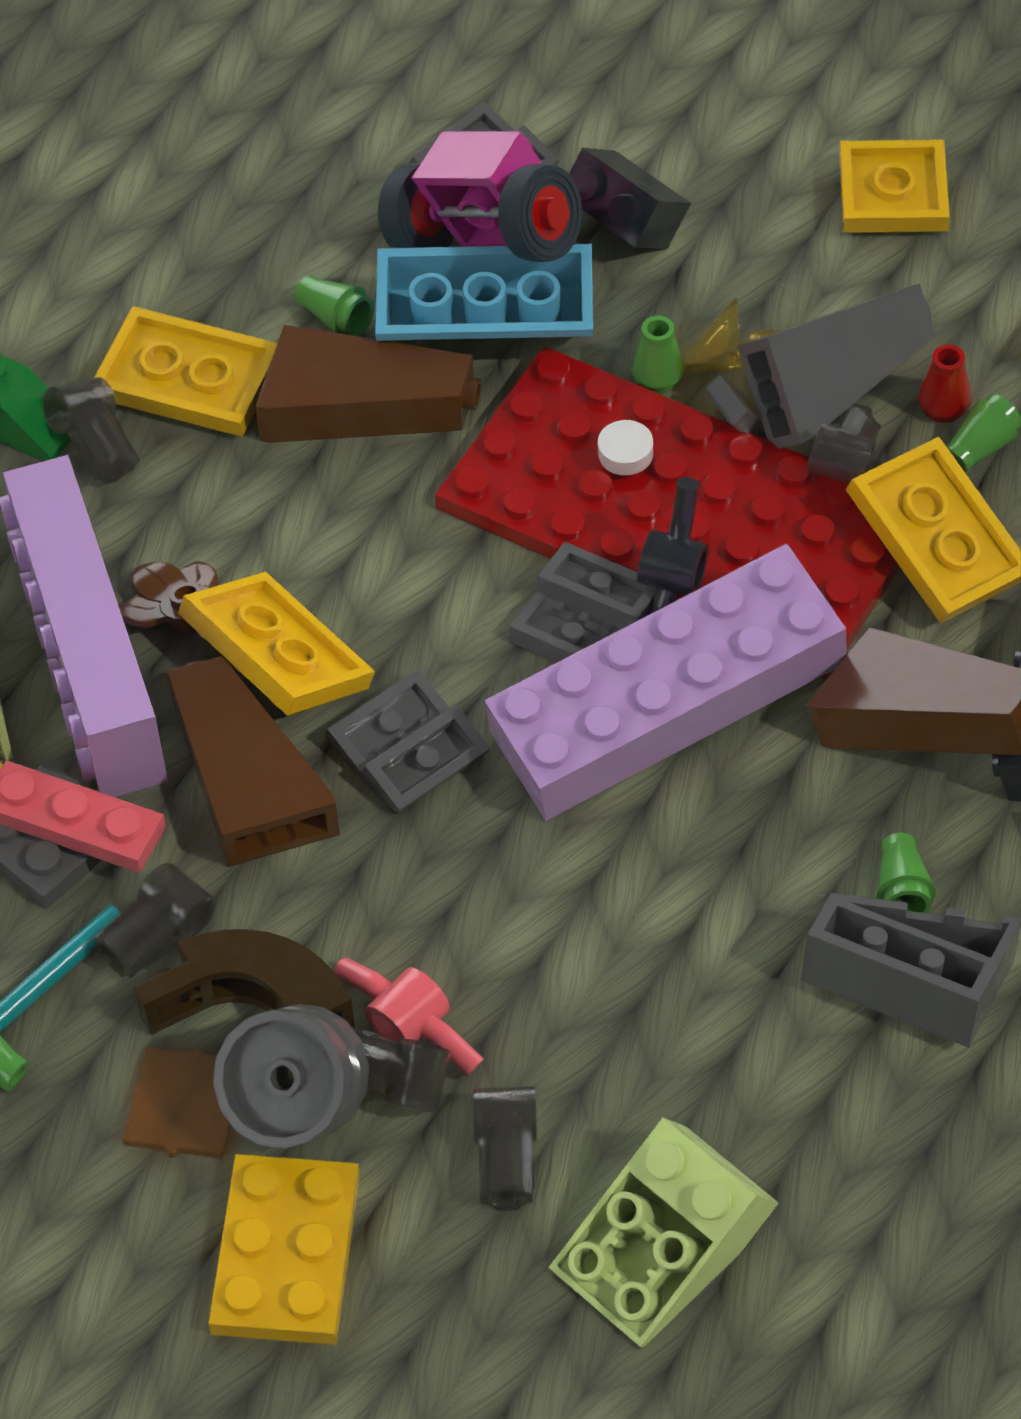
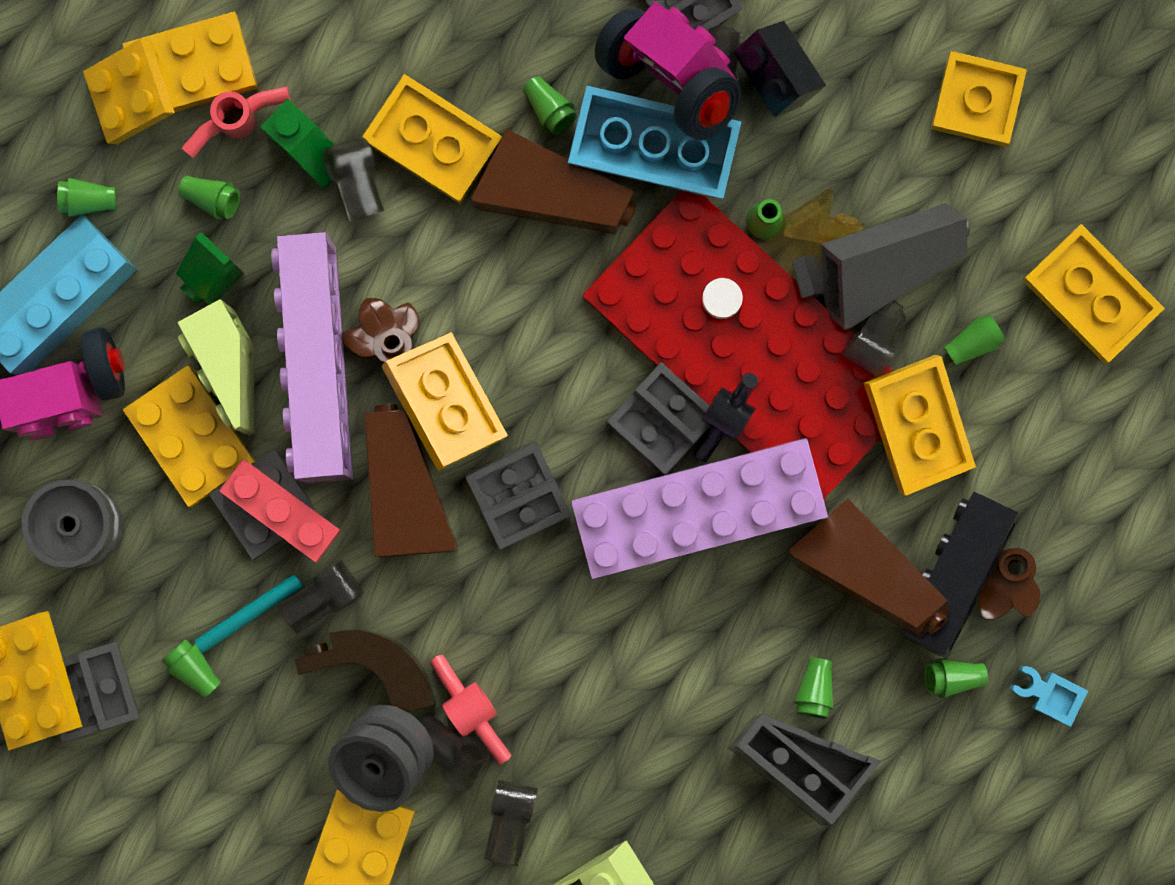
camera: 10 degrees right, 30 degrees up
(177, 1105) = (313, 729): clear orange piece -> none
(946, 387) = (954, 303): red cone -> none

